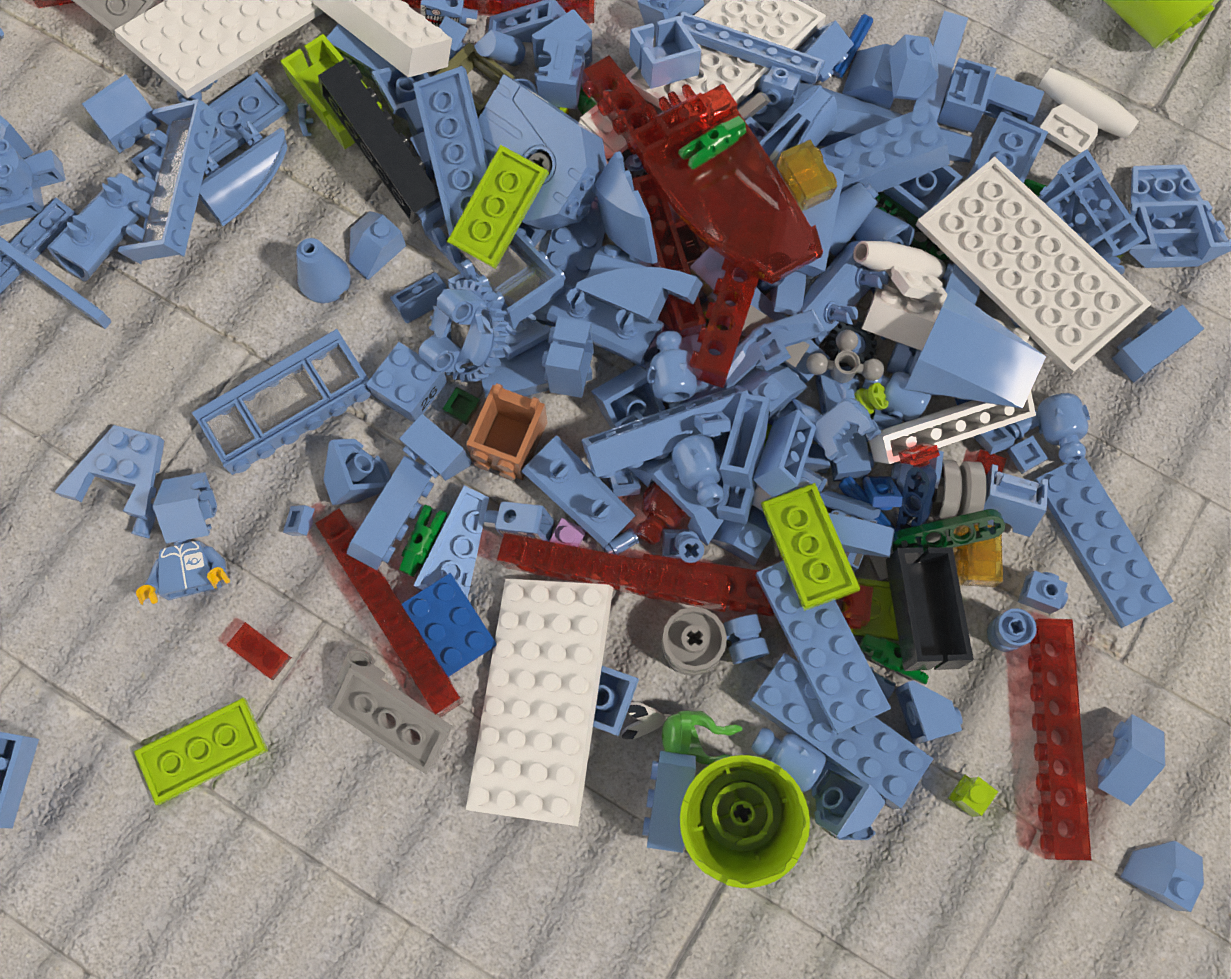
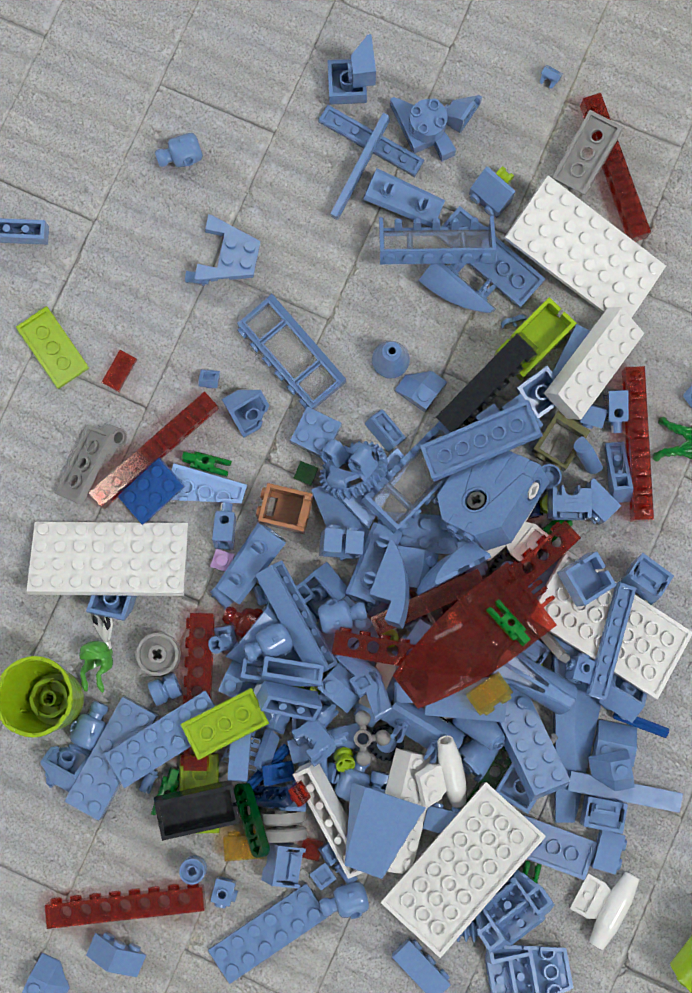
camera: 85 degrees right, 10 degrees up
(184, 506) = (204, 304): medium blue piece -> none
(184, 571) = (165, 311): medium blue torso -> none
(389, 514) = (218, 440): medium blue brick -> none
(434, 448) = (266, 461): medium blue slope -> none
(498, 206) = (442, 476): lime tile -> none
(620, 572) = (194, 596): clear red brick -> none
(672, 776) = (61, 651): medium blue brick -> none
(712, 423) = (299, 647): medium blue plate -> none
(927, 713) = (127, 816): medium blue slope -> none
(972, 795) = (81, 850): lime brick -> none

